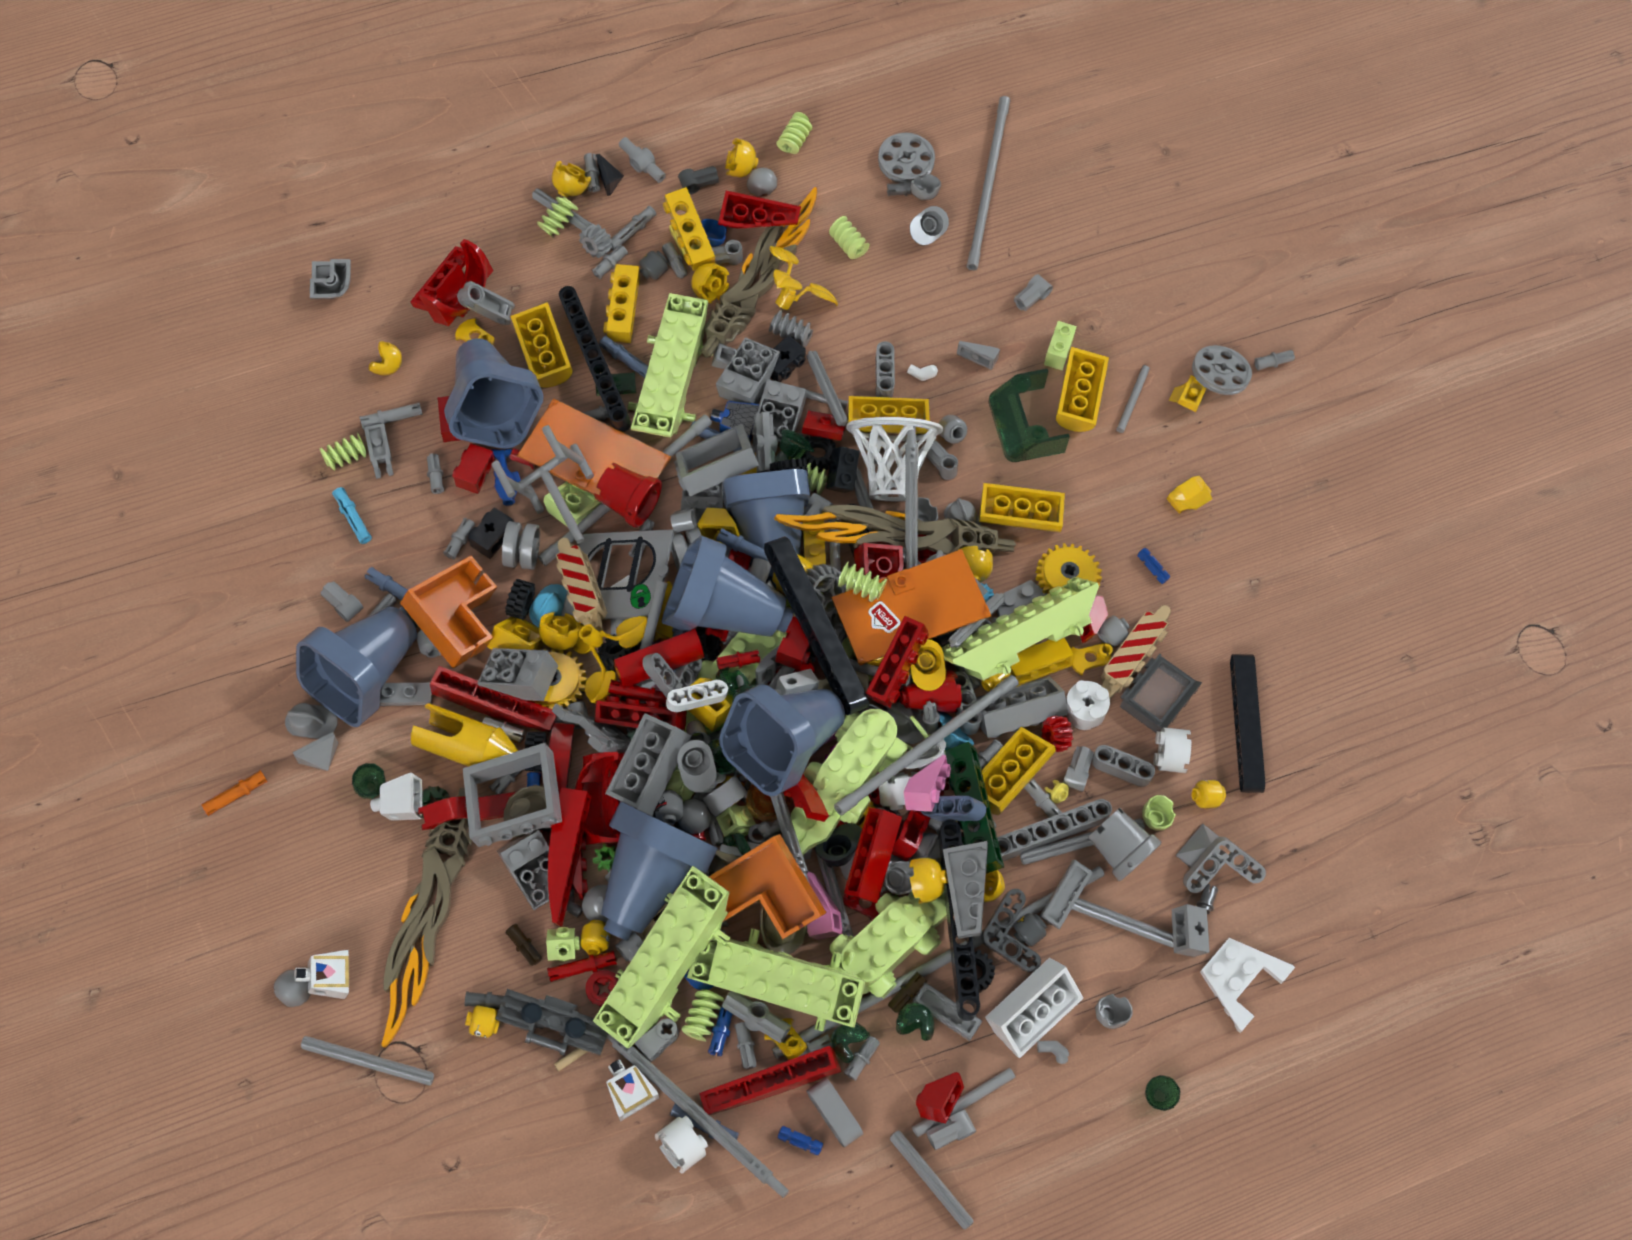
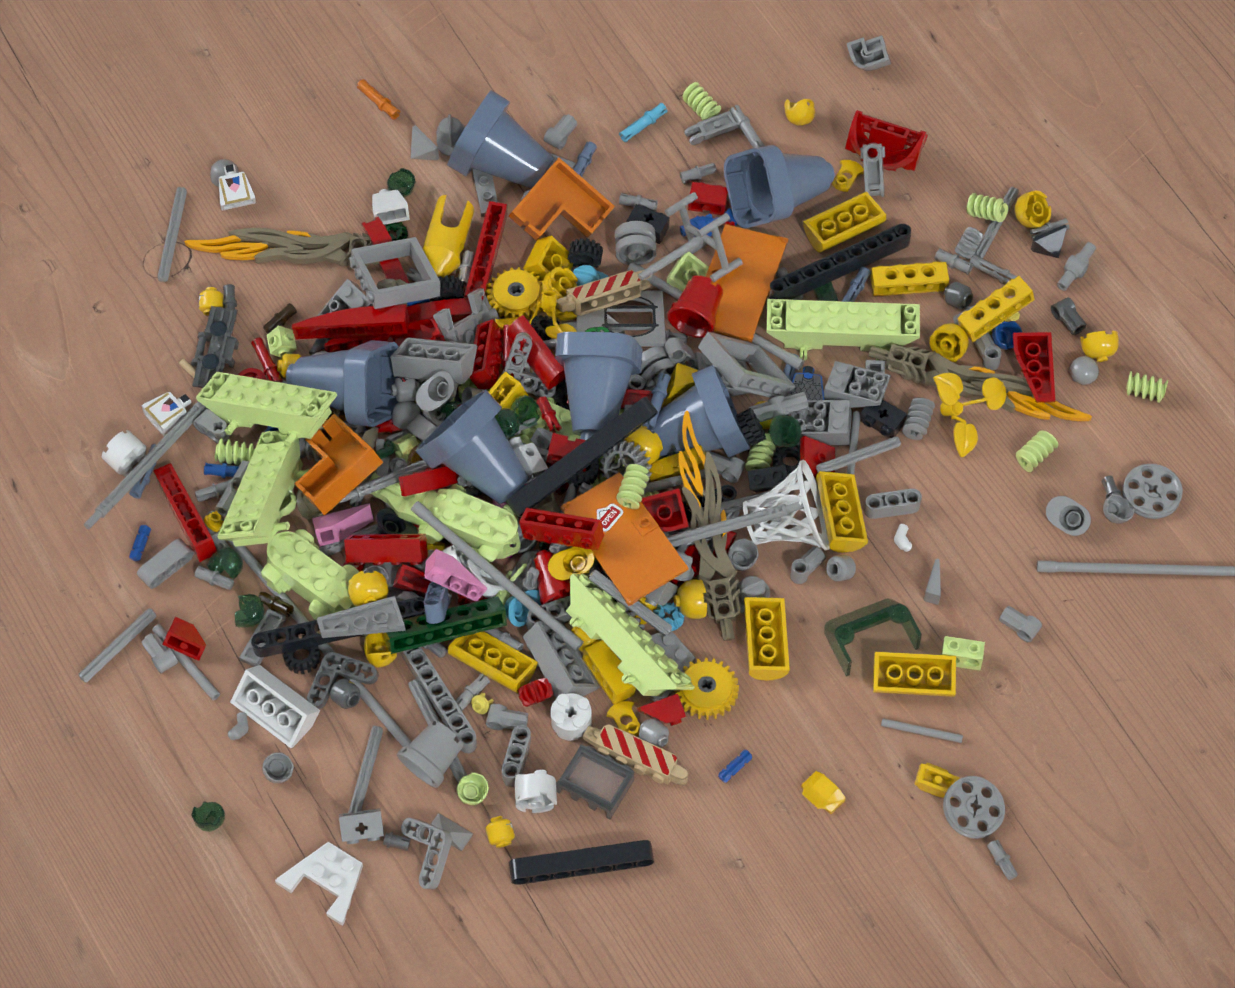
camera: 85 degrees right, 5 degrees down
(519, 673) = (509, 261): light grey slope -> none
(691, 703) = (498, 387): white beam -> none
(1066, 894) = (380, 716): light grey plate -> none

